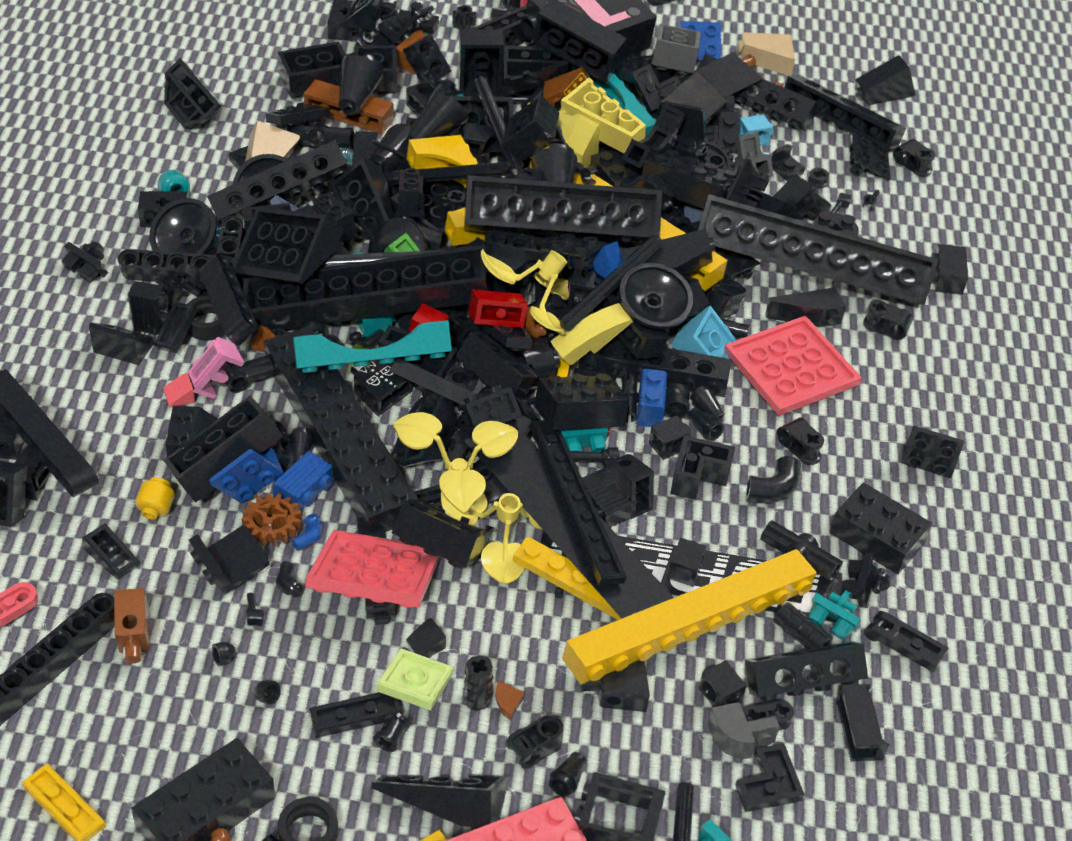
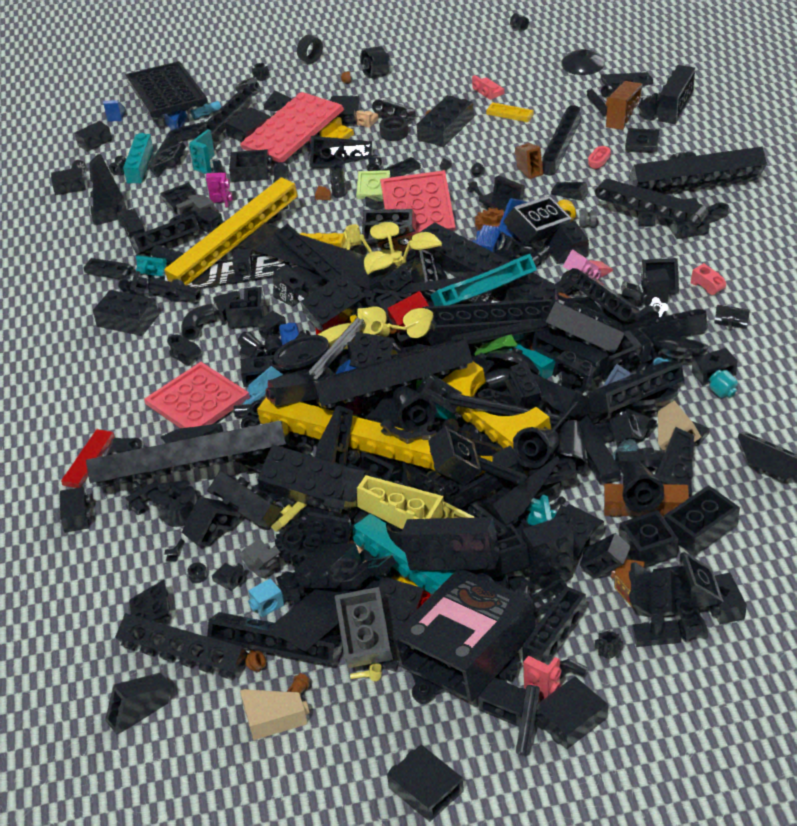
camera: 170 degrees right, 5 degrees down
(65, 321) = (708, 279): none -> coral leg
(128, 473) = (583, 218): none -> dark grey wheel
(286, 582) = (467, 203): black arm -> none
(311, 533) = (467, 225): blue arm -> none
(532, 744) = (302, 178): black piece -> none
(694, 741) = (219, 188): none -> dark pink bracket
(709, 39) = (352, 705): blue bracket -> none
(728, 495) = (220, 304): none -> black slope
(747, 182) = (250, 475): black hinge -> none
(871, 199) = (146, 563): black hand -> none
(907, 778) = (105, 193): none -> black wedge
(915, 157) = (104, 618): black piece -> none
(932, 451) = (91, 360): black bracket -> none
(934, 334) = (94, 448): none -> red tile

